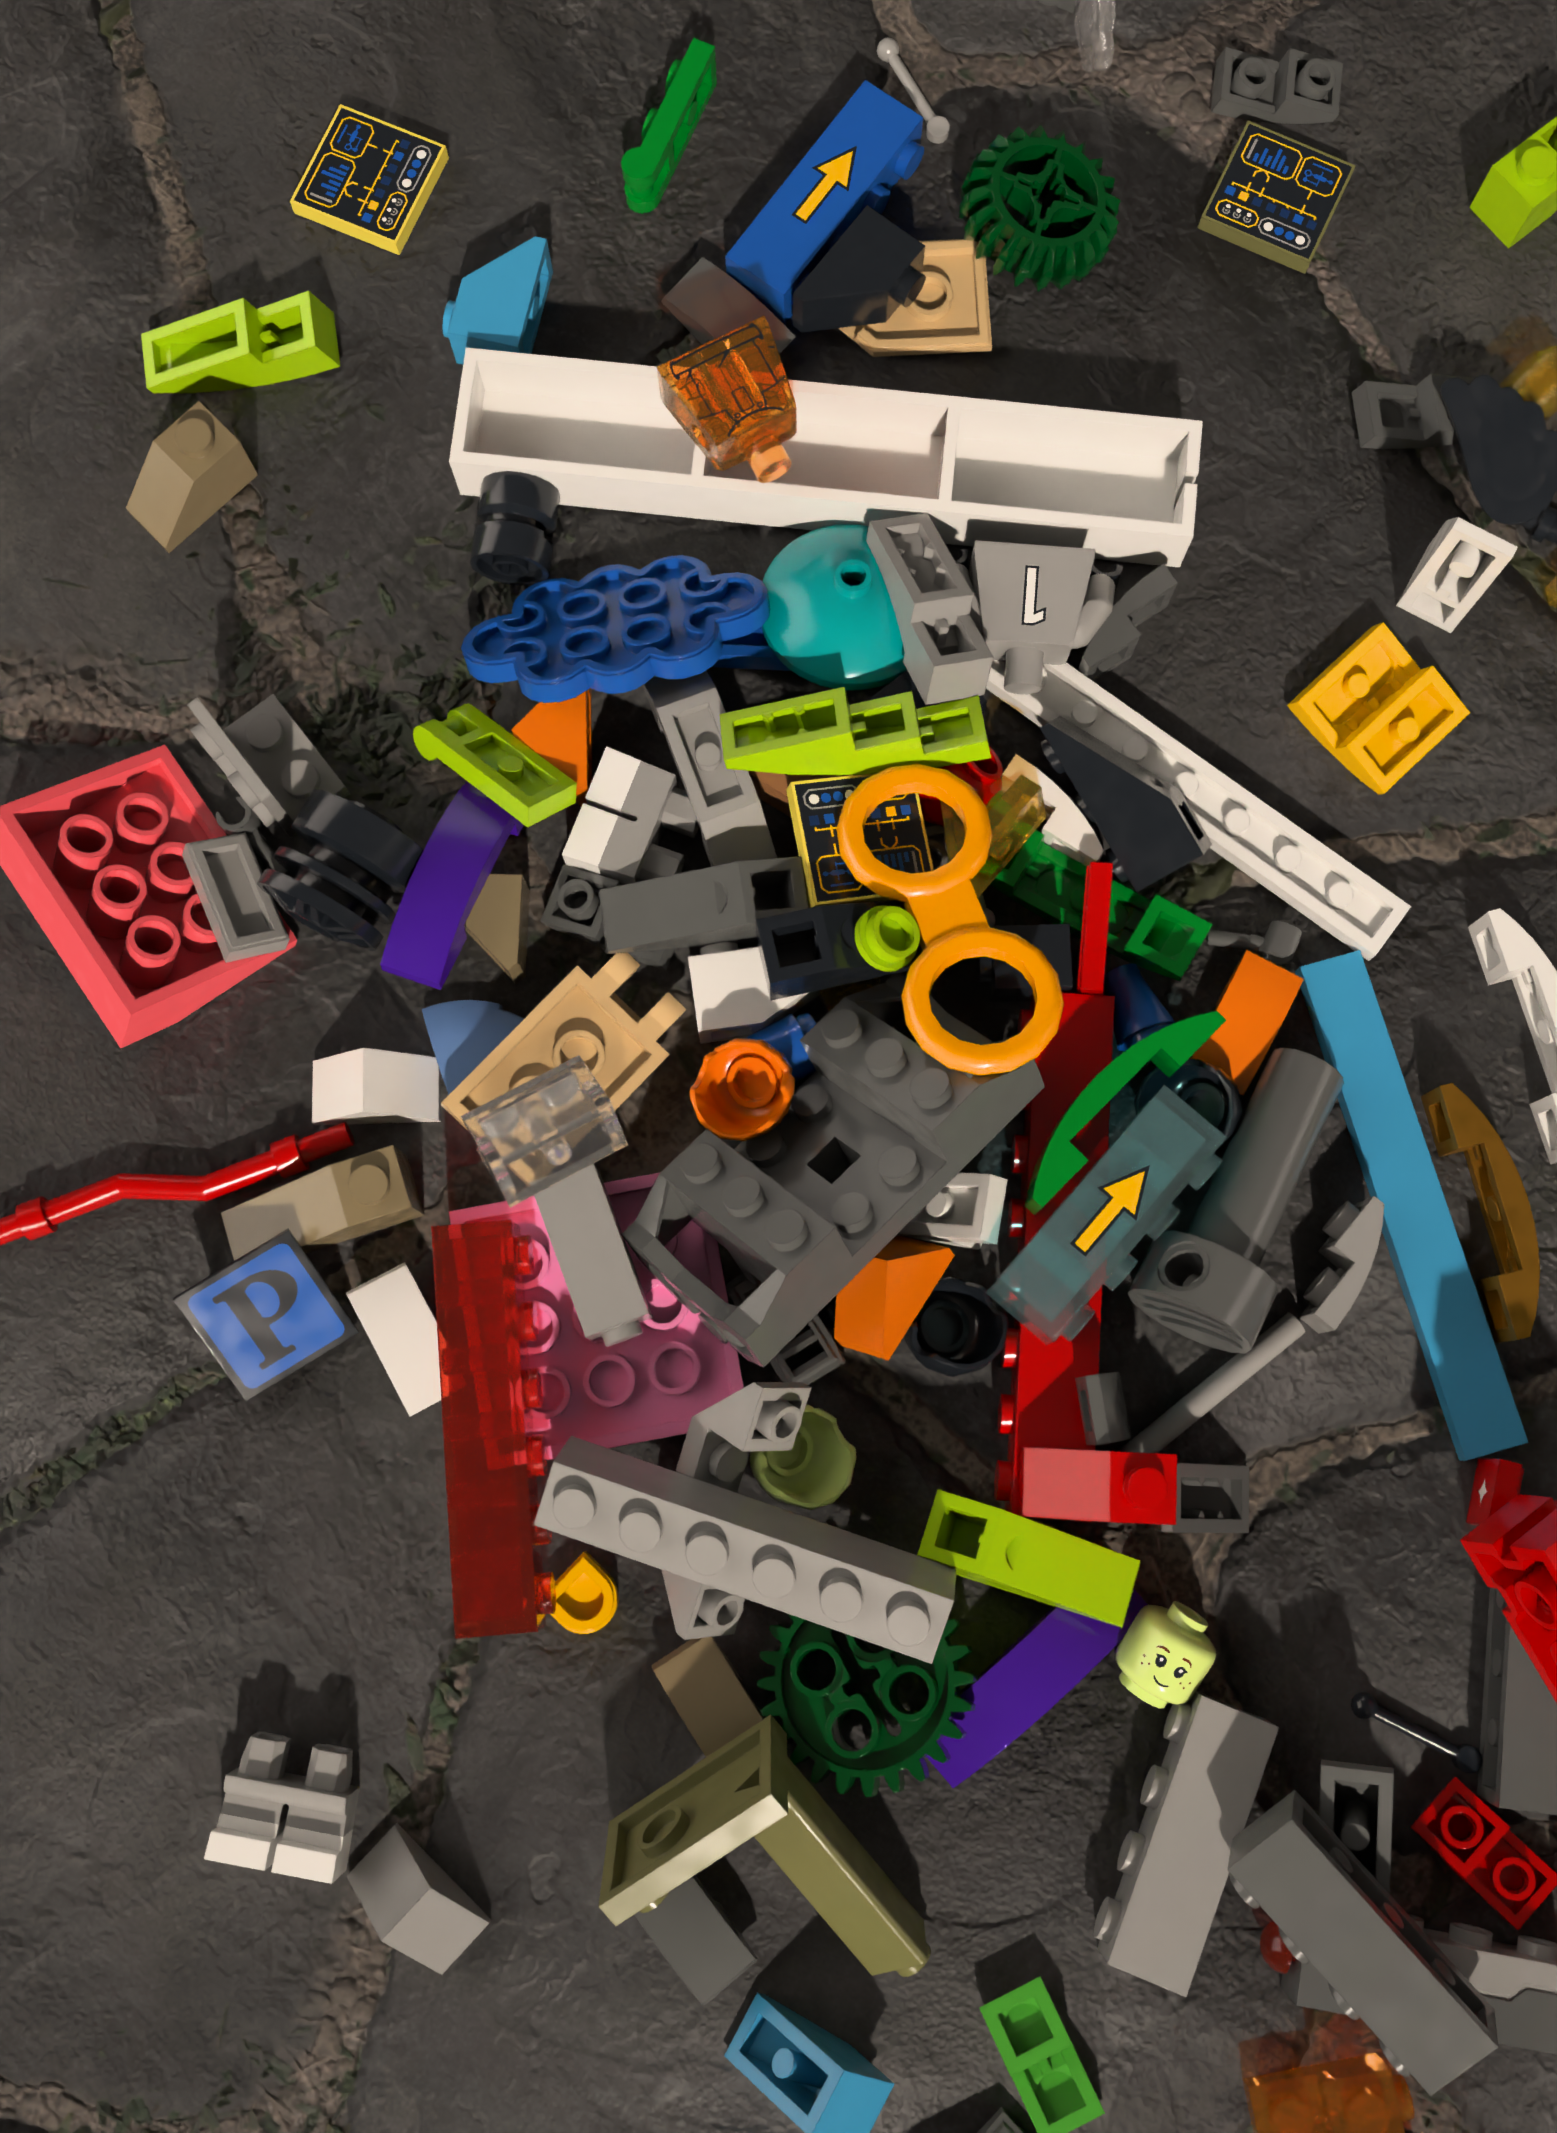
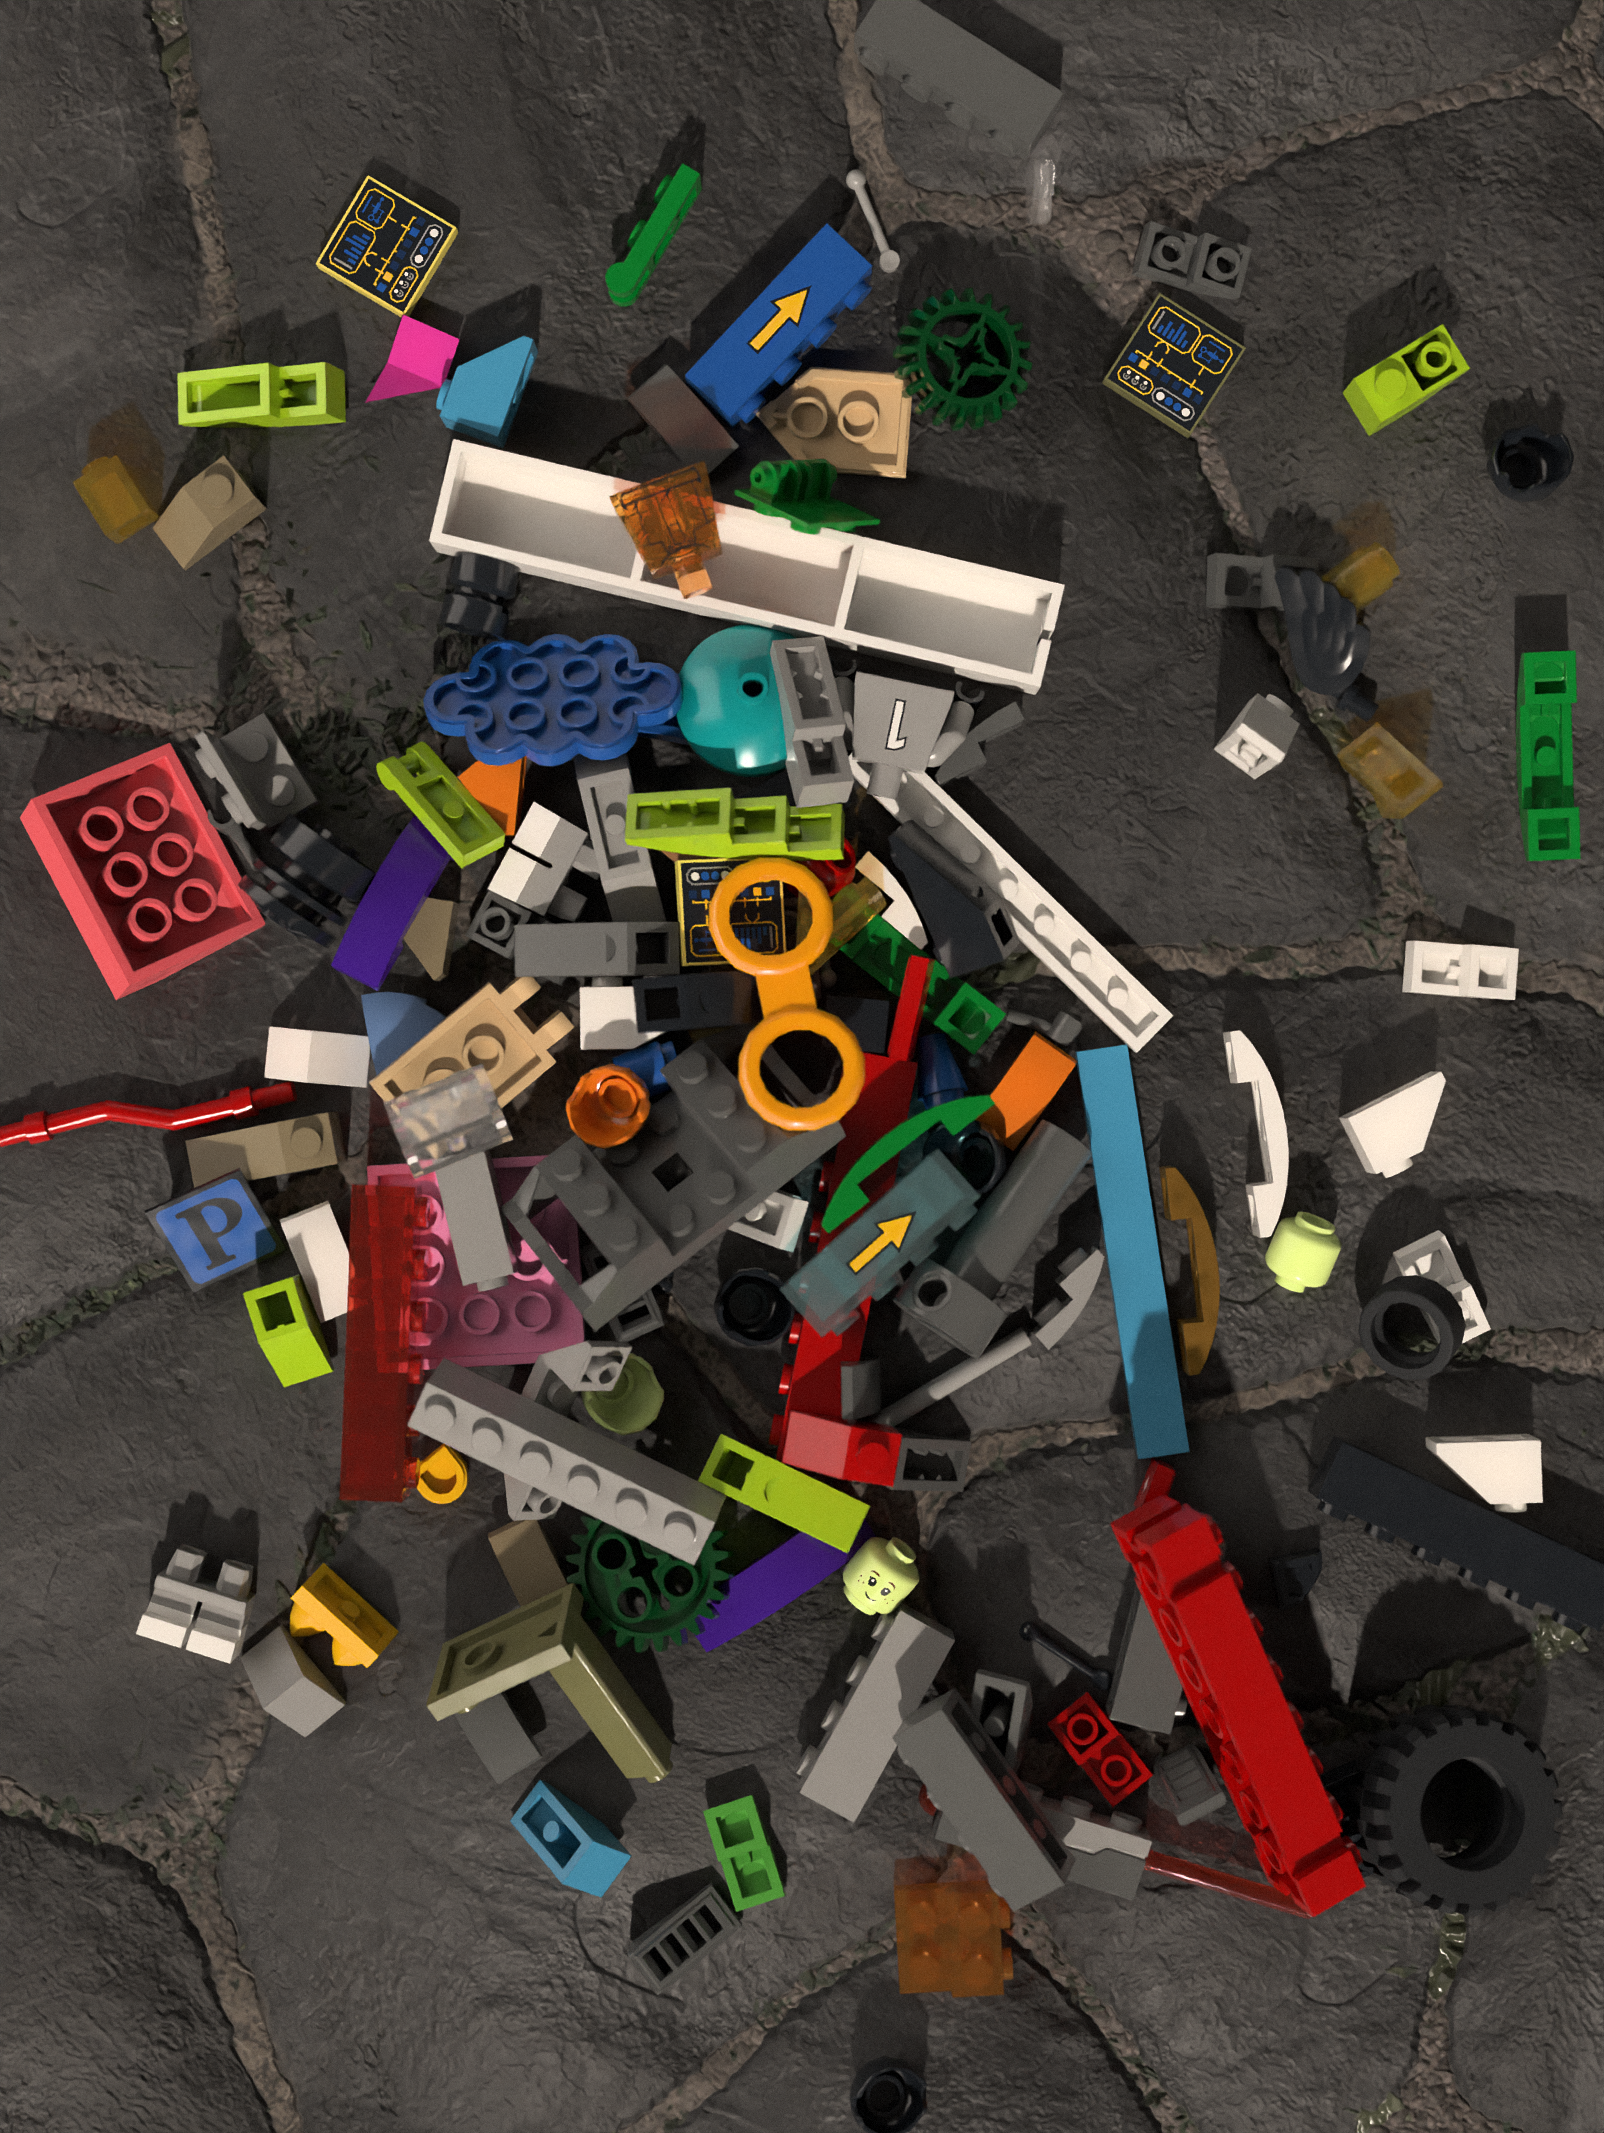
camera: 10 degrees right, 10 degrees up
(79, 475) = (115, 498): none -> clear yellow brick
(236, 907) = (214, 878): light grey tile -> none
(369, 1429) = (289, 1330): none -> lime slope
(414, 291) = (416, 361): none -> dark pink sticker
(461, 1789) = (334, 1606): none -> yellow tile
(861, 277) = (800, 408): black slope -> none
(877, 355) = (802, 495): none -> green hinge
(887, 937) = (734, 1006): lime plate -> none
(888, 1295) = (706, 1278): orange slope -> none
(1378, 709) = (1180, 840): yellow slope -> none

